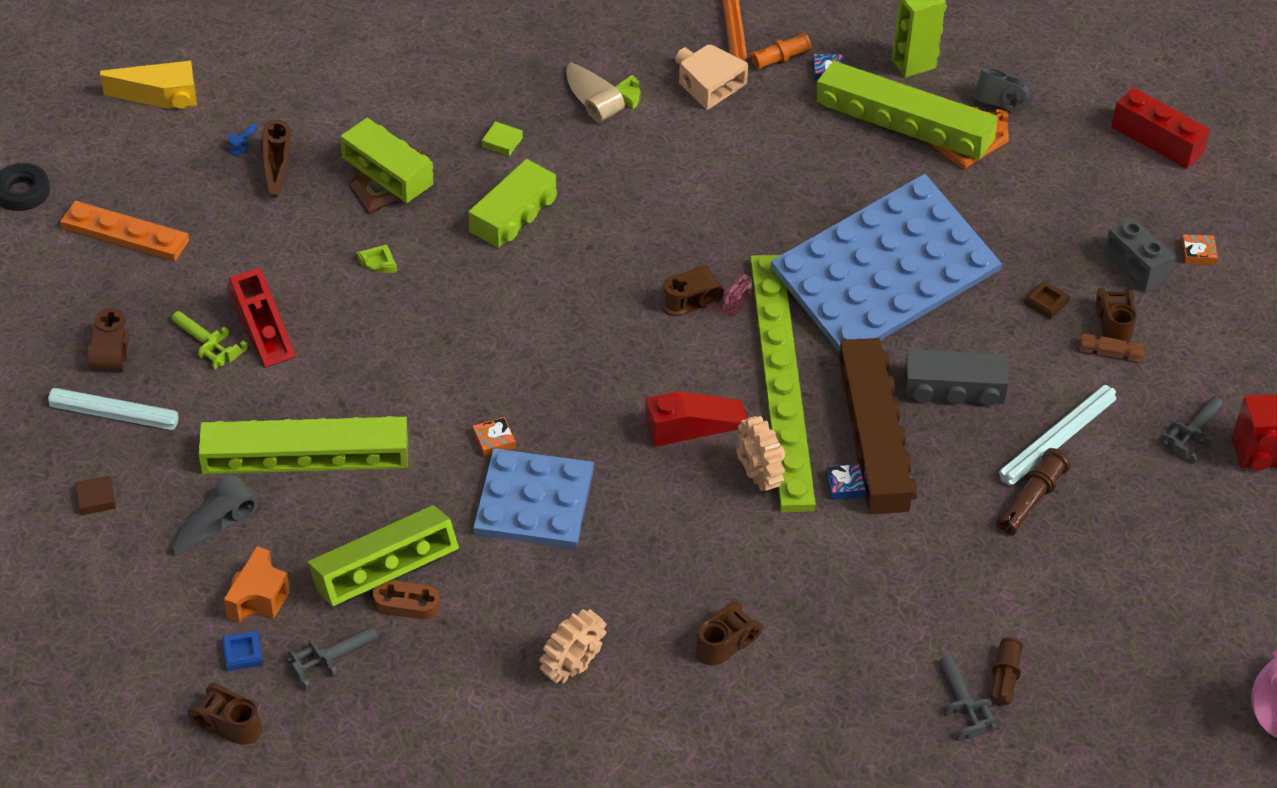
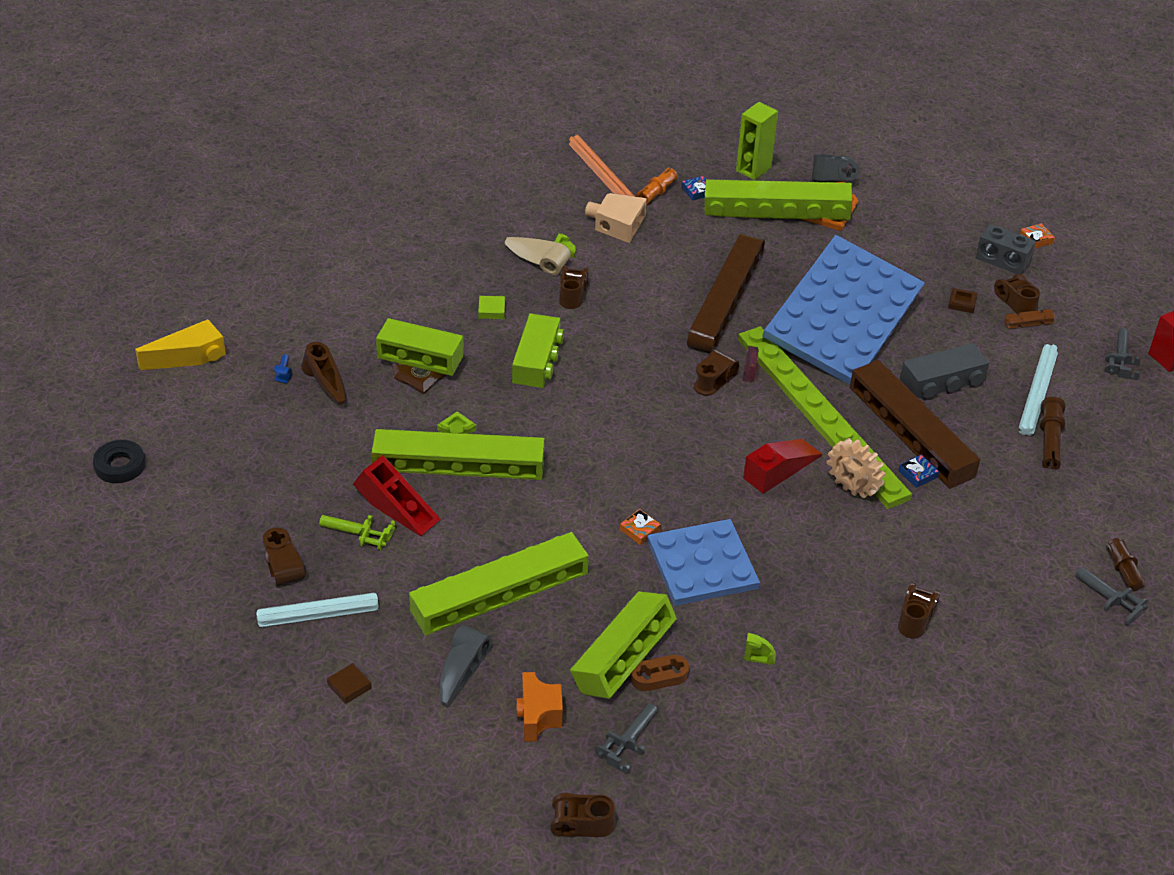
camera: 25 degrees left, 5 degrees down
(124, 230) = (231, 468): orange plate -> none
(242, 651) = (556, 761): blue tile -> none
(355, 292) = (461, 454): none -> lime brick
(523, 614) = (759, 650): none -> lime tile
(573, 646) = (822, 657): light nougat gear -> none
(603, 142) = (572, 287): none -> reddish brown piece
(769, 201) = (724, 293): none -> reddish brown beam
(1160, 127) = (956, 162): red brick -> none

